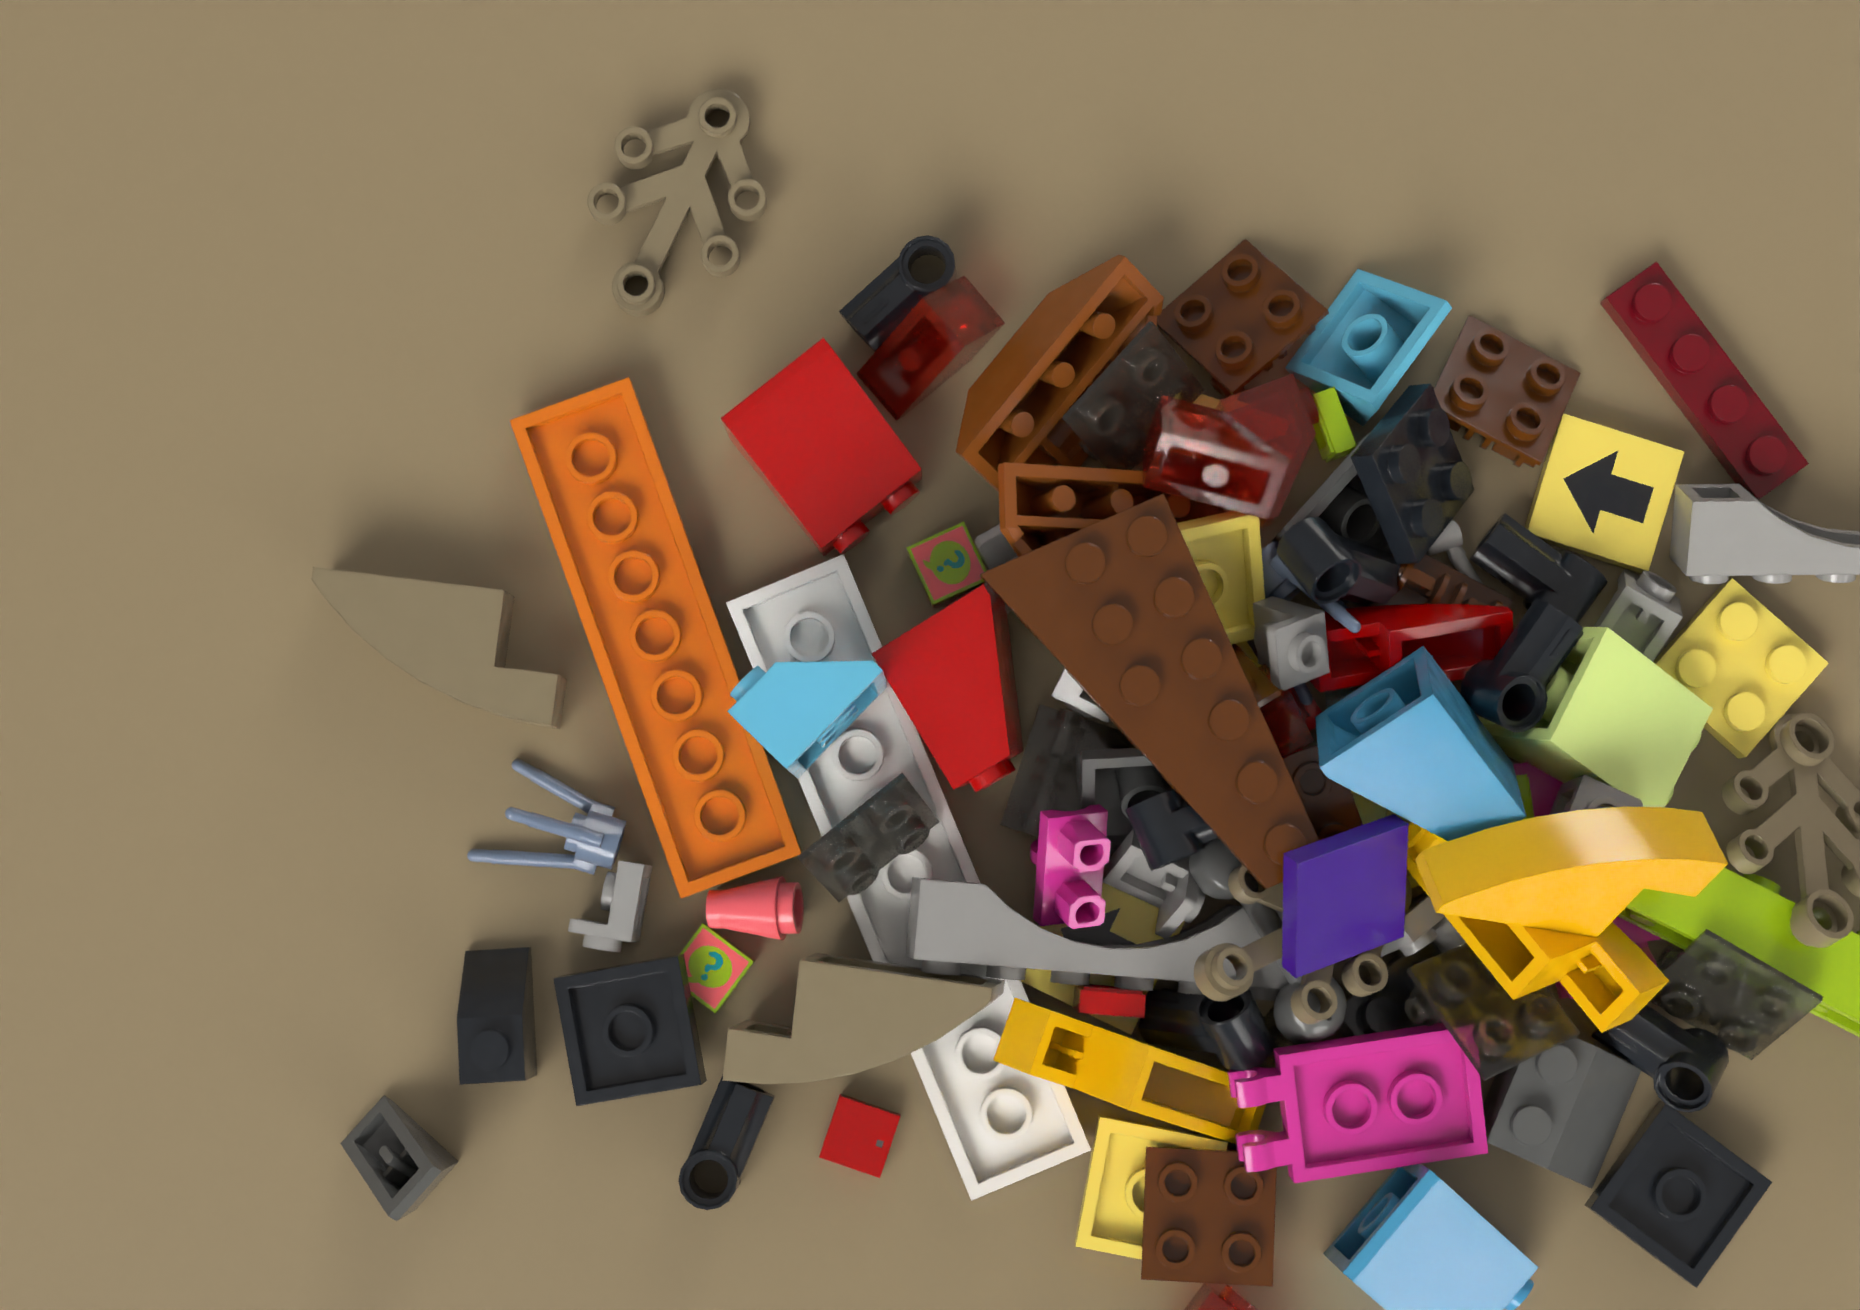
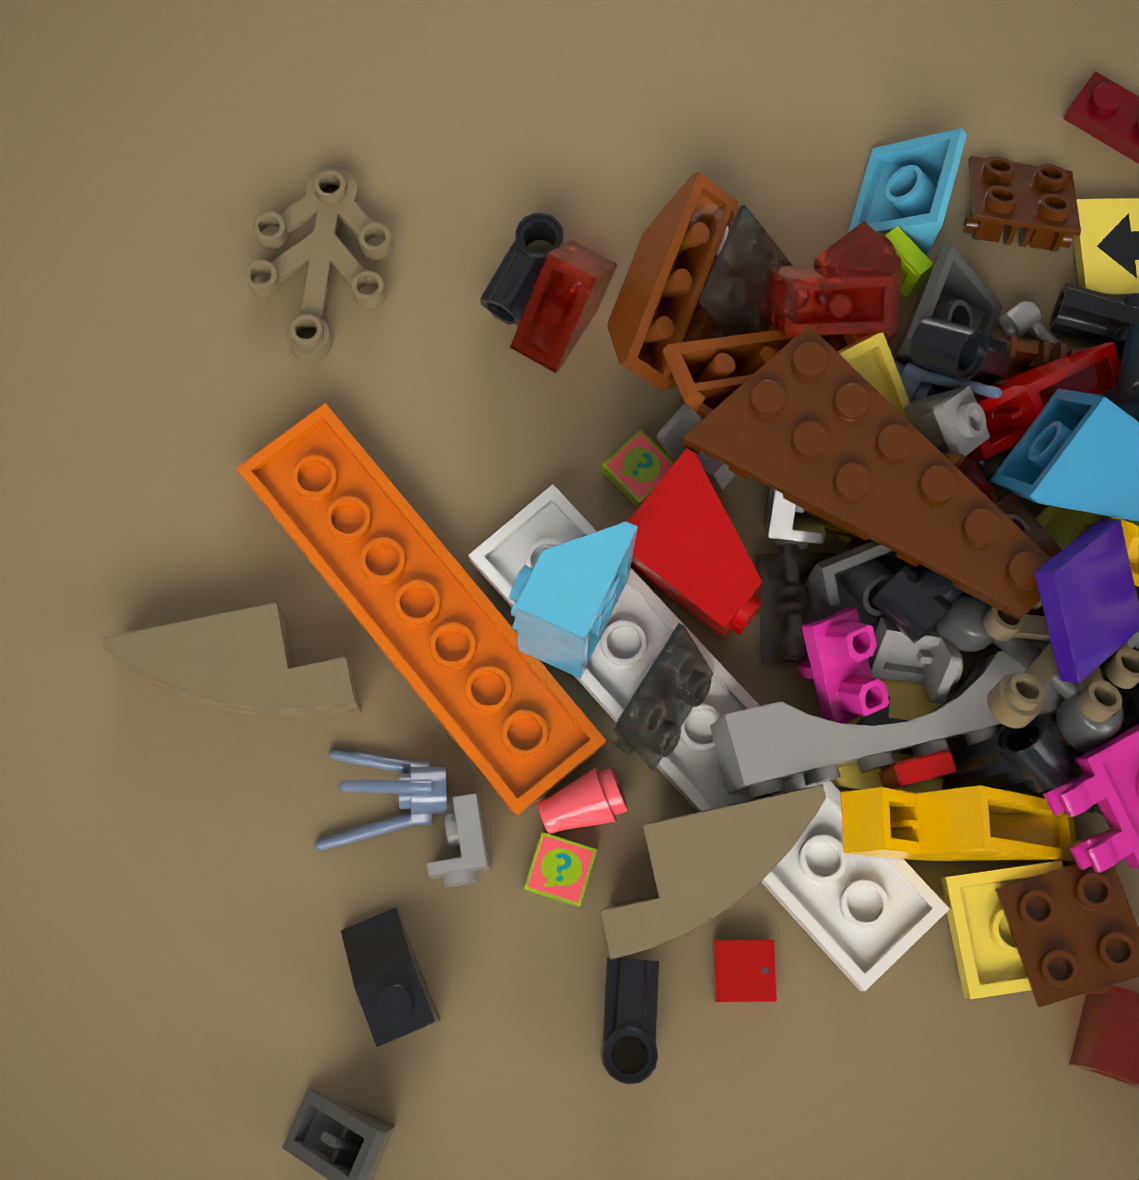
camera: 25 degrees left, 10 degrees down
(630, 1030) = (511, 947): black plate -> none
(824, 449) = (505, 403): red slope -> none
(1240, 318) = (805, 204): reddish brown hinge -> none
(1413, 473) = (988, 267): black plate -> none

